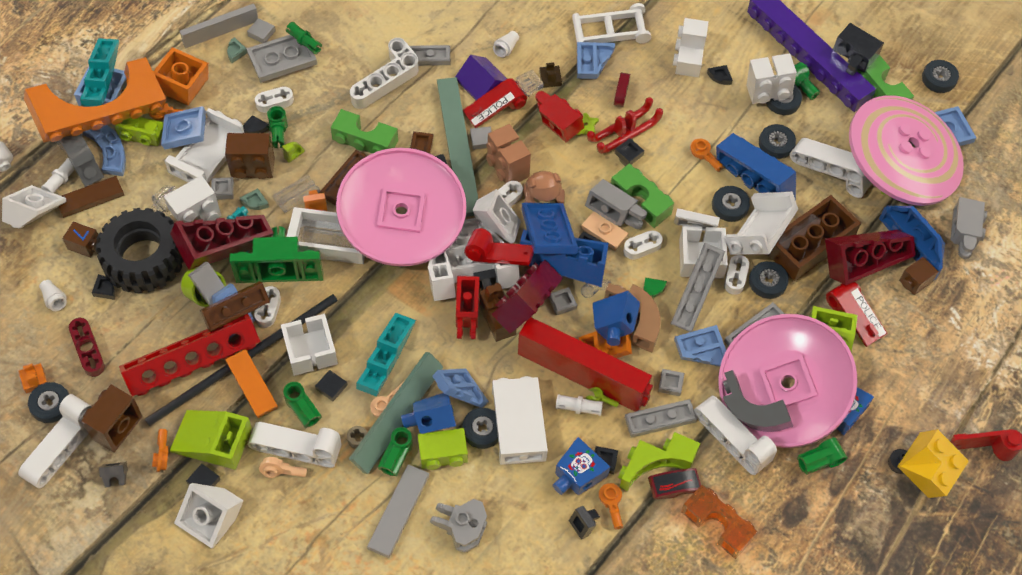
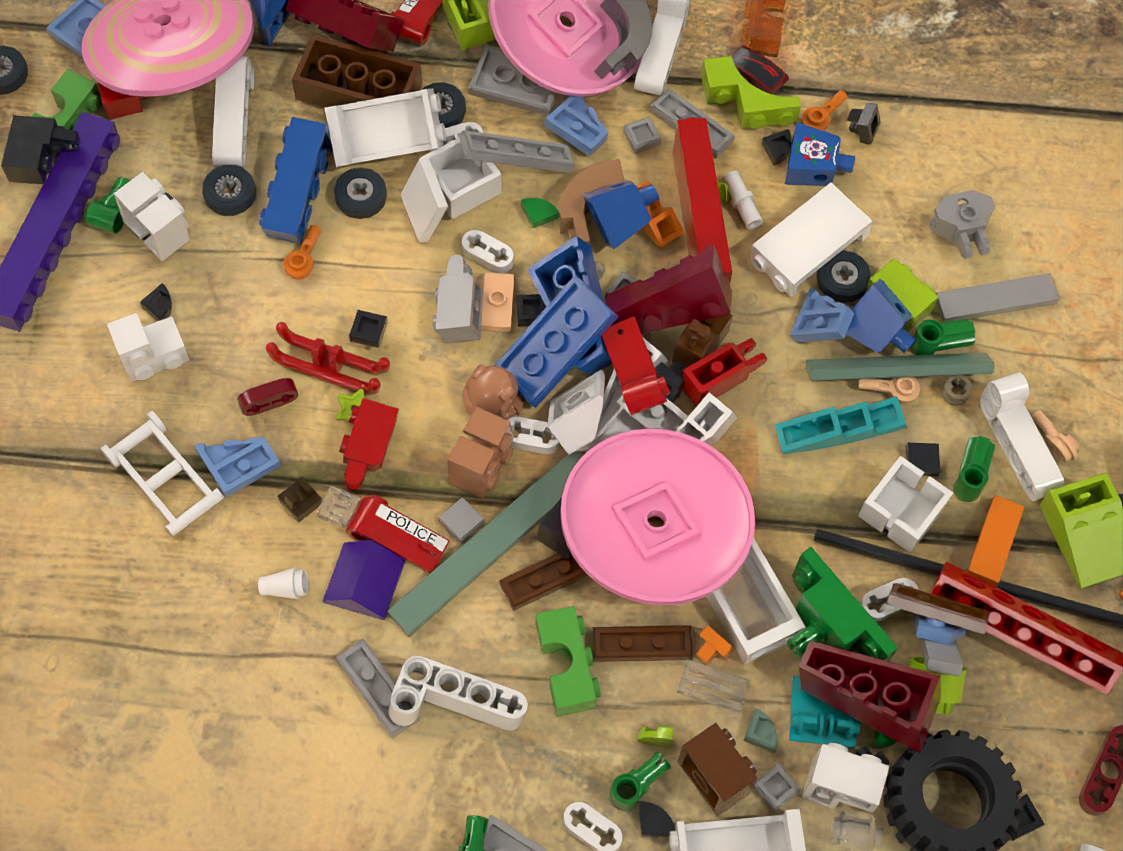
camera: 125 degrees left, 5 degrees up
(656, 203) = (424, 262): bright green arch -> none

